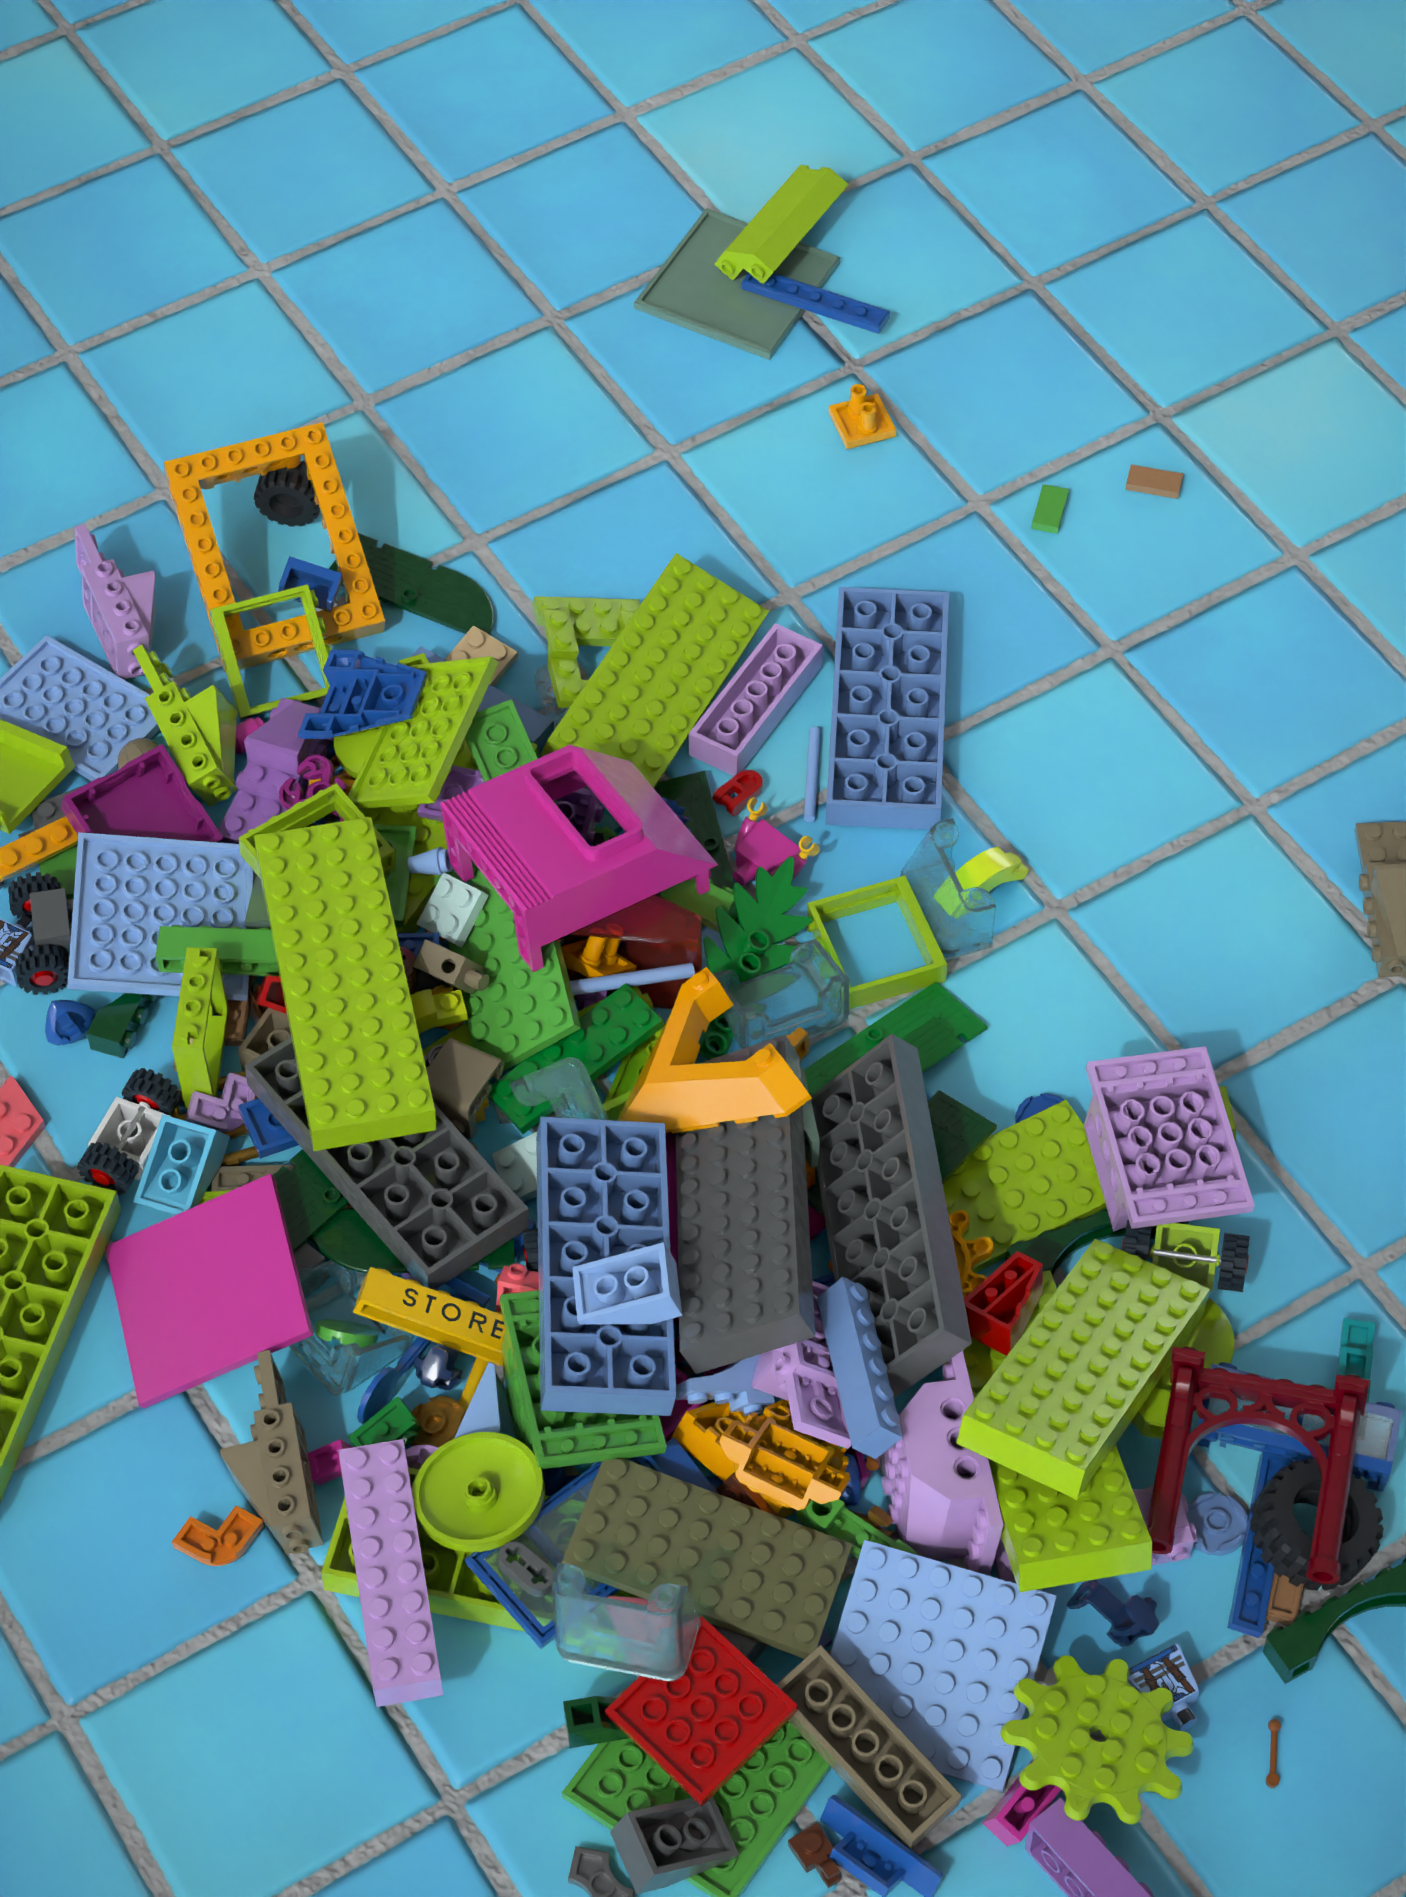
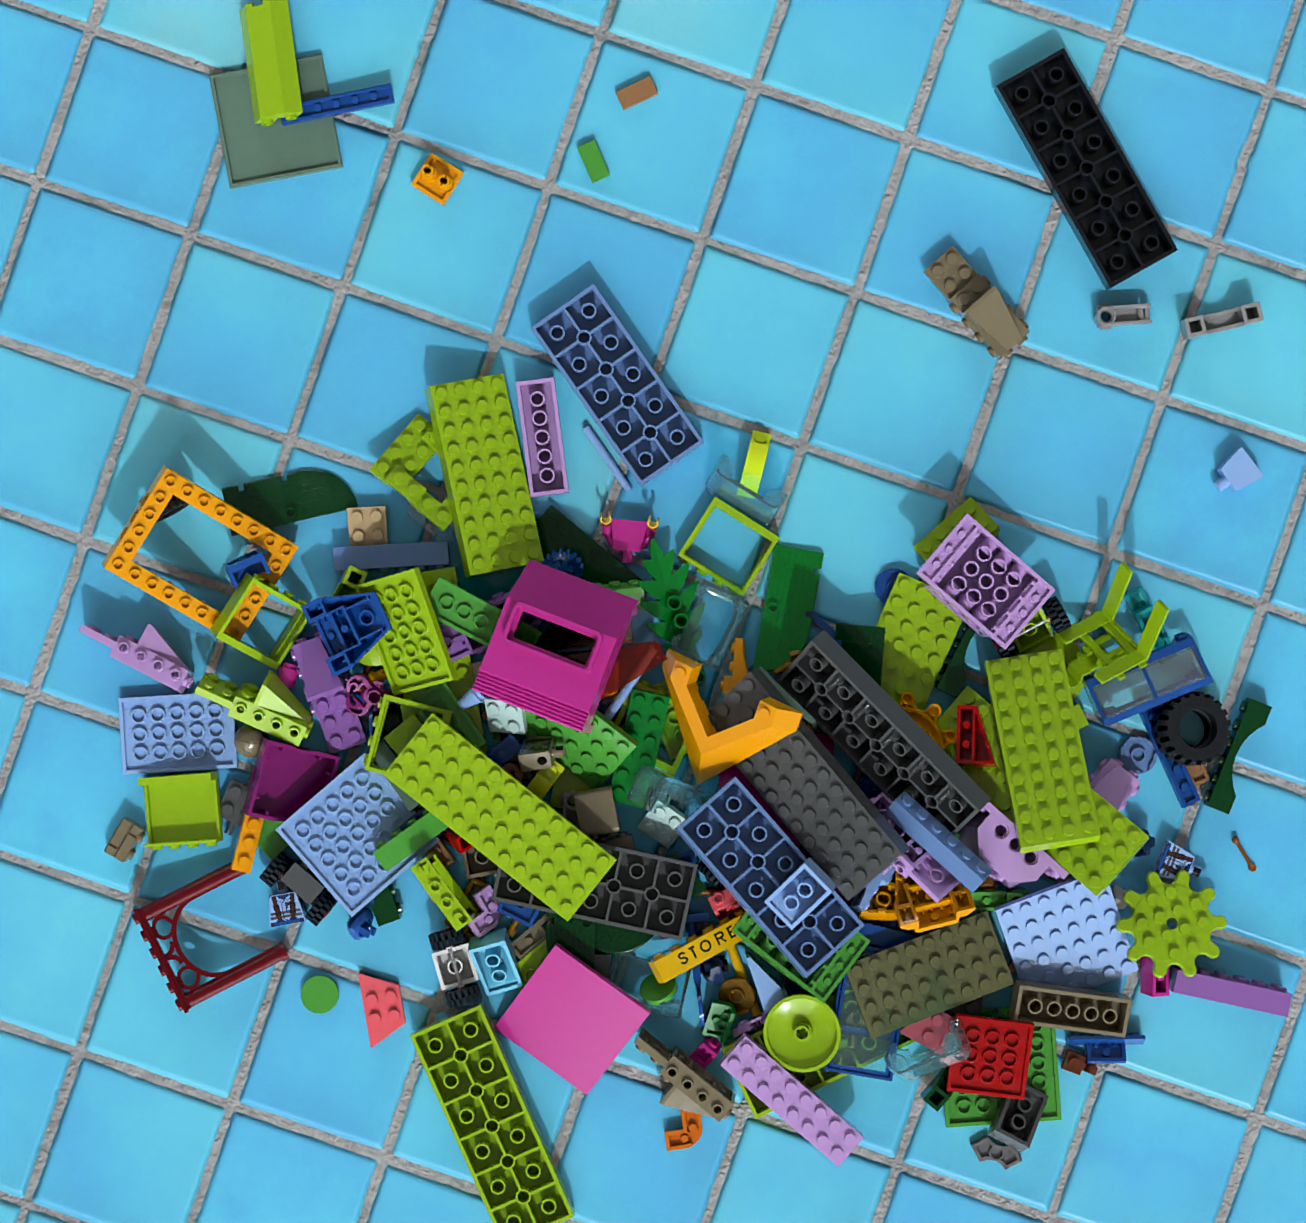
camera: 40 degrees left, 35 degrees up
(523, 1573) = (857, 1049): dark grey beam -> none
(745, 784) = (579, 495): red plate -> none
(1296, 1358) = (1122, 658): none -> lime piece
(1344, 1403) = (1105, 745): dark red arch -> none

